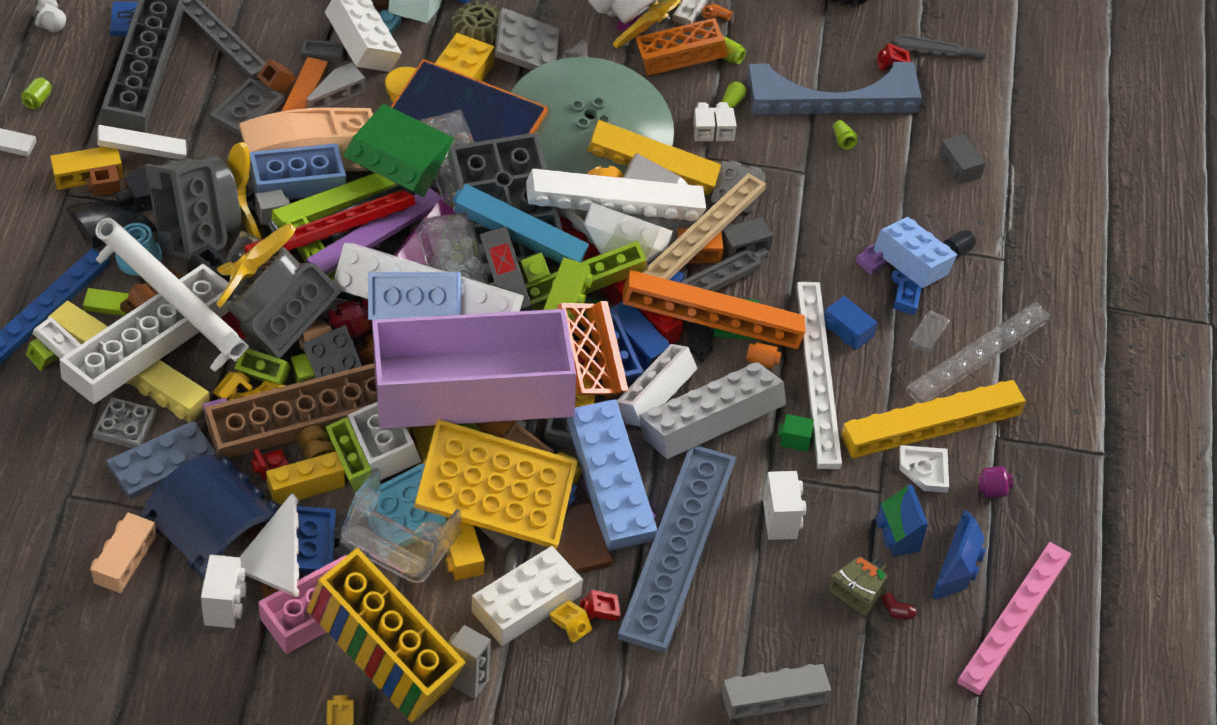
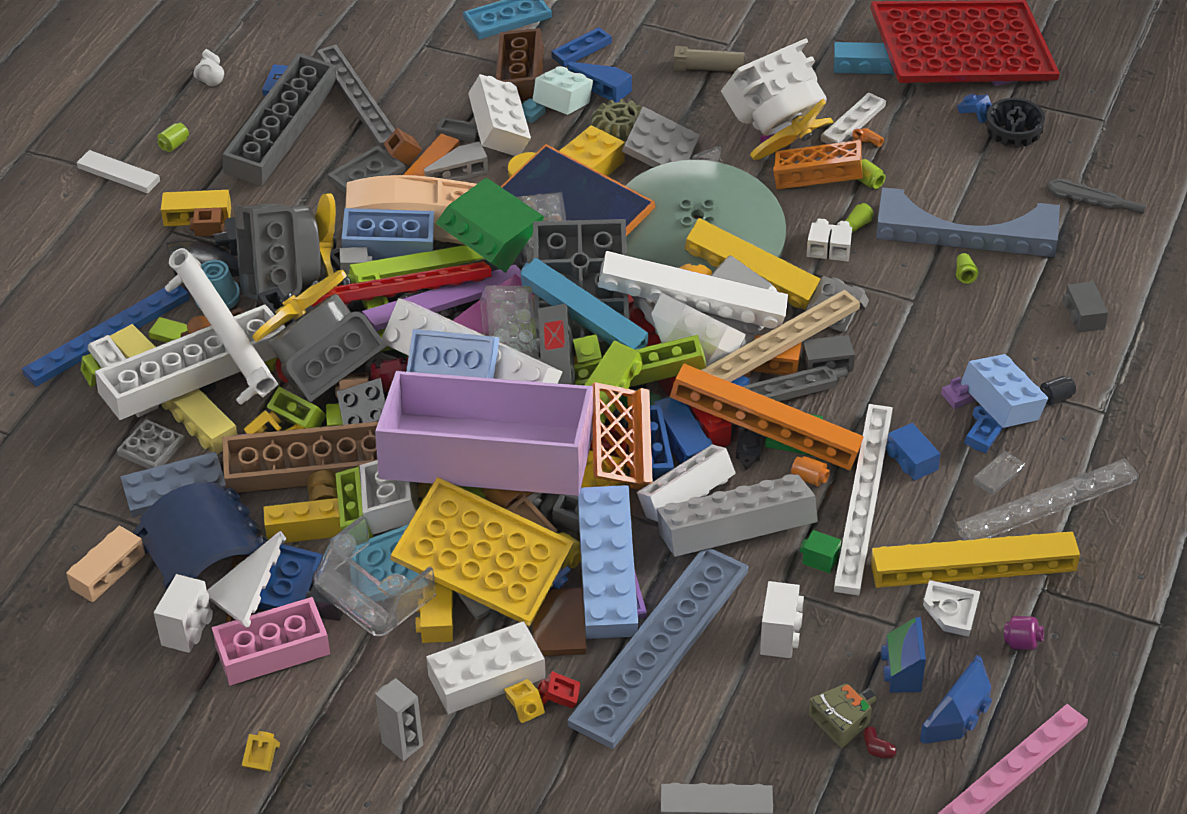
camera: 20 degrees right, 5 degrees down
(141, 142) = (250, 189): white tile -> none
(267, 462) = (272, 499): red bracket -> none
(384, 635) = (315, 676): yellow brick -> none
(891, 54) = (1040, 195): red bracket -> none

